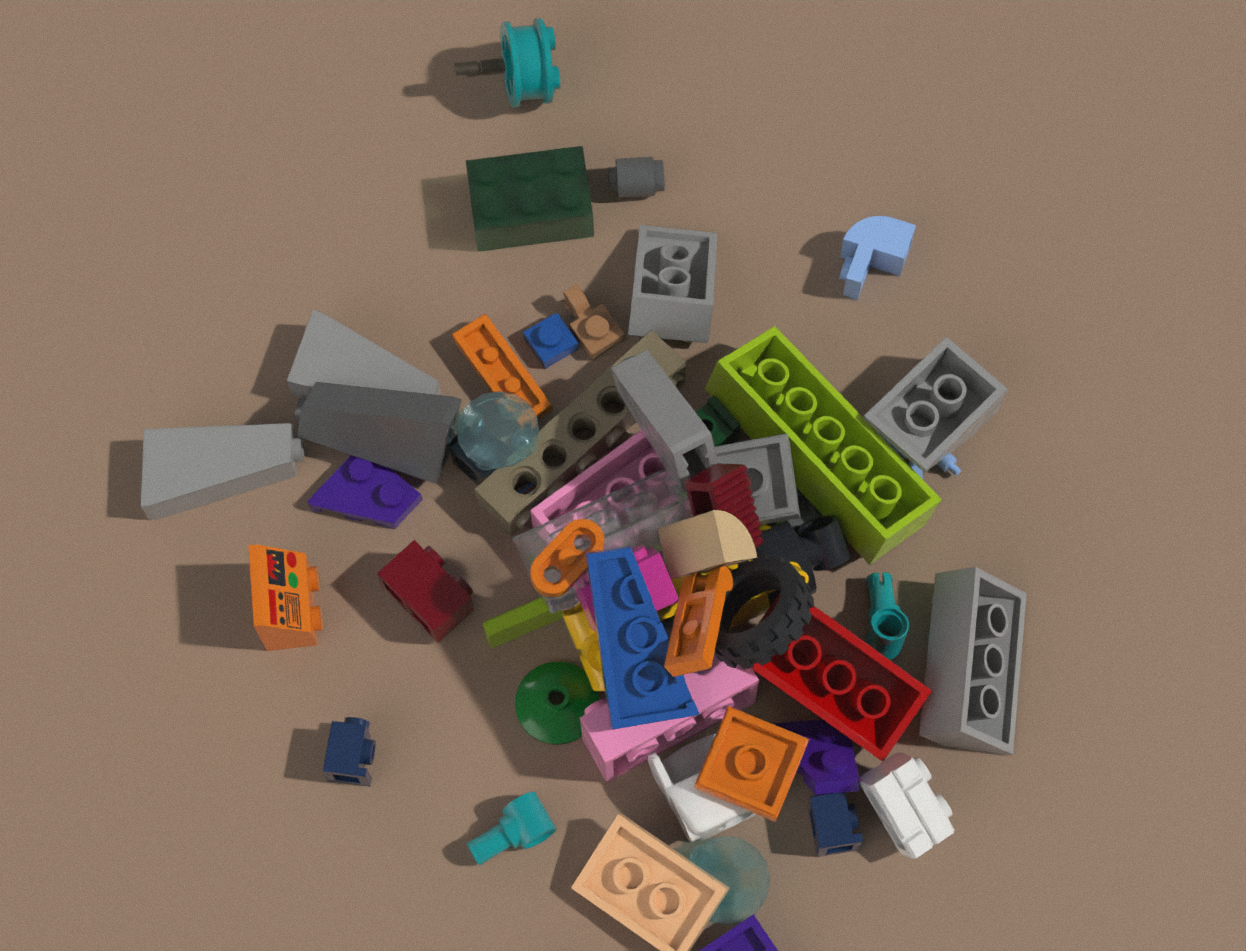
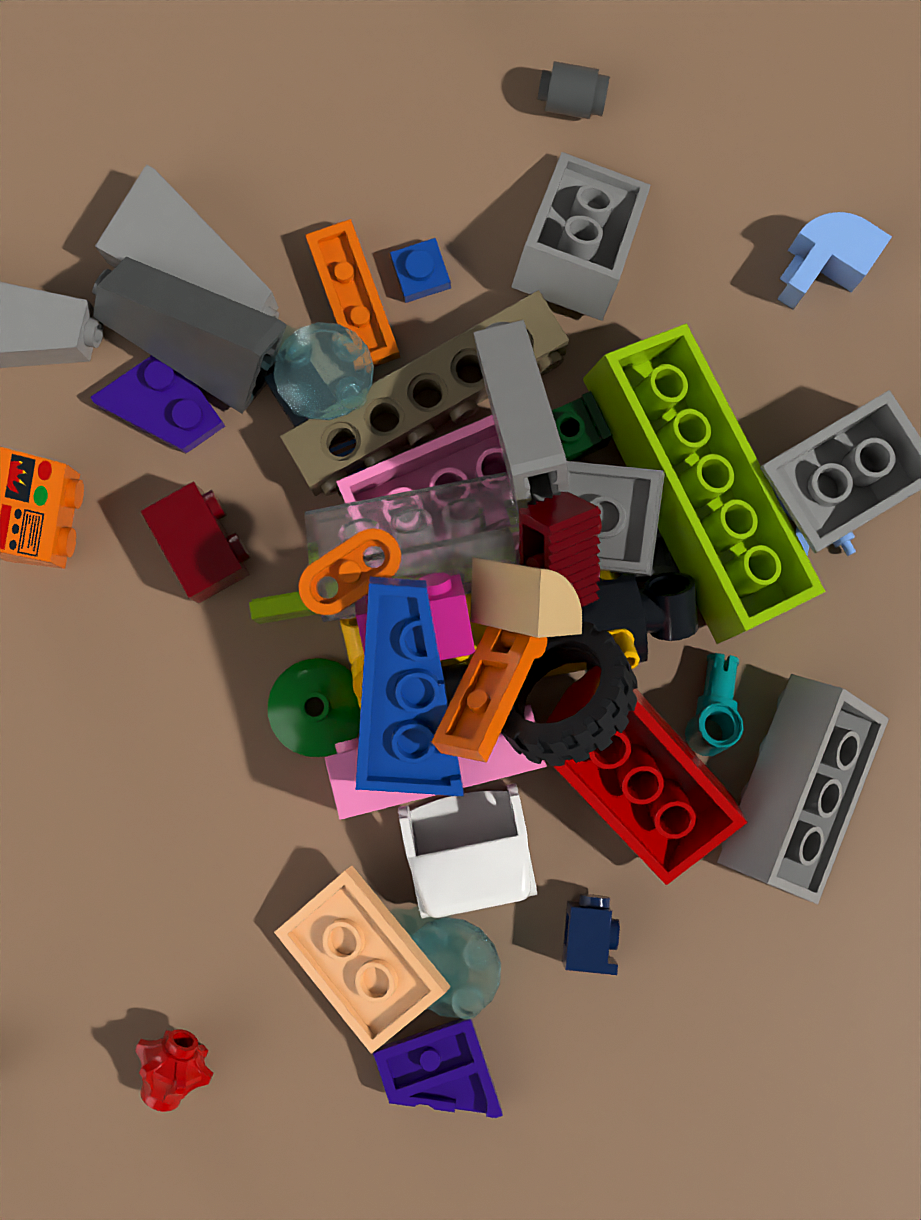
camera: 15 degrees right, 15 degrees up
(349, 752) = (64, 710): dark blue brick -> none
(523, 825) = (235, 845): teal pin -> none
(530, 198) = (438, 85): clear green brick -> none
(594, 327) = (474, 266): medium nougat plate -> none
(751, 763) = (512, 858): orange tile -> none
(828, 758) = (594, 856): dark purple wing -> none
(907, 804) = (680, 942): white brick -> none

